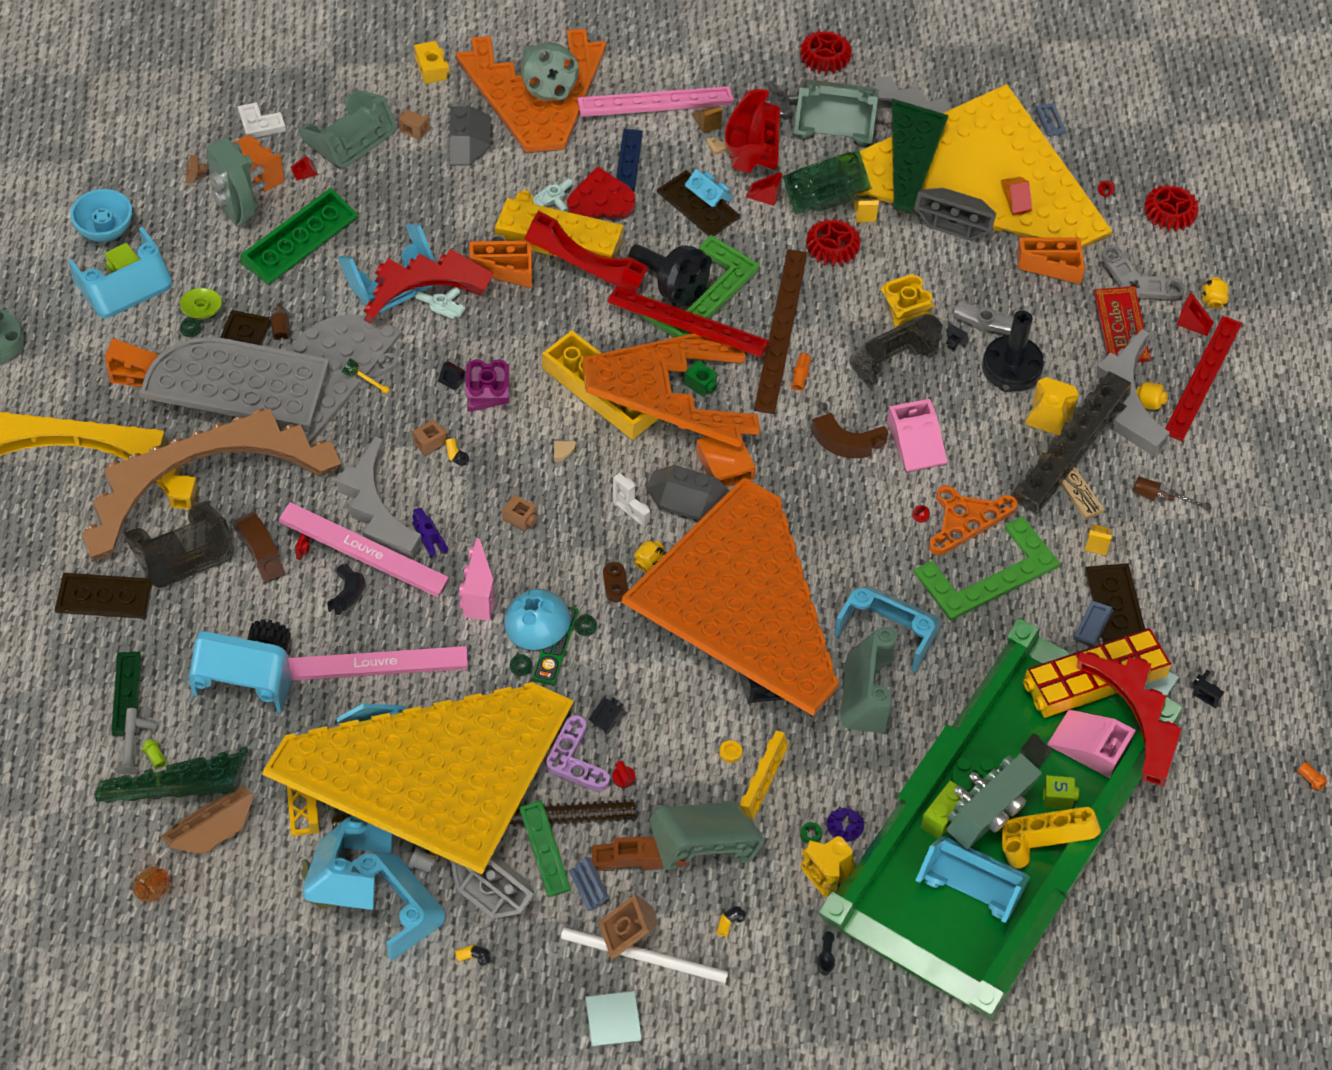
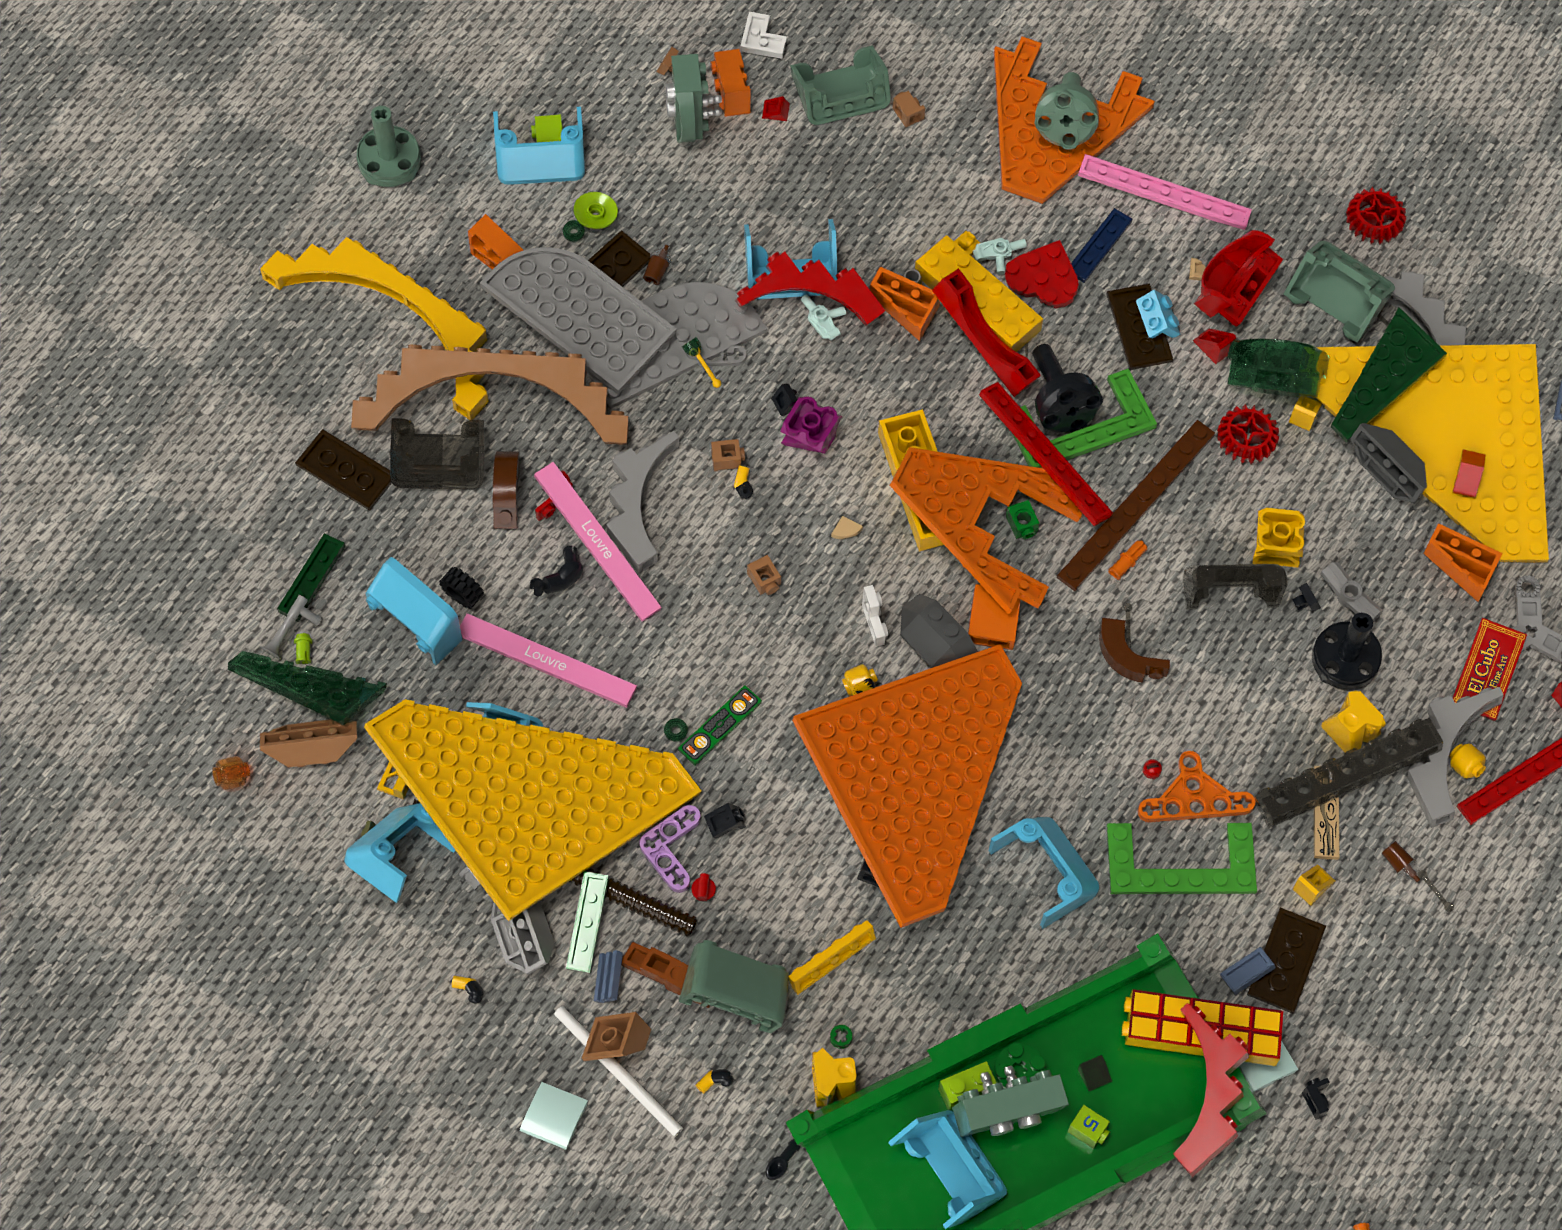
camera: 30 degrees right, 10 degrees up
(101, 215) = (553, 74): medium azure piece -> none
(298, 236) = (728, 181): green arch -> none
(422, 911) = (447, 922): medium azure windscreen -> none
(428, 531) = (668, 551): dark purple hinge -> none
(431, 62) = (965, 36): yellow brick -> none
(468, 135) = (955, 143): dark grey wedge -> none
(478, 589) = (675, 636): bright pink slope -> none
(536, 619) = (716, 692): medium azure piece -> none
(585, 619) = (759, 713): clear green plate -> none
(614, 580) = (813, 689): reddish brown plate -> none
(708, 118) = (1206, 236): pearl gold slope -> none
(730, 751) = (817, 916): yellow tile -> none
(781, 99) = (1293, 249): flat silver piece -> none
(853, 829) = (879, 1055): dark purple gear -> none
(864, 704) = (963, 937): sand green windscreen -> none
(917, 435) = (1198, 686): bright pink slope -> none
(1045, 830) = (1028, 1150): yellow beam -> none
(1092, 740) = (1154, 1092): bright pink slope -> none

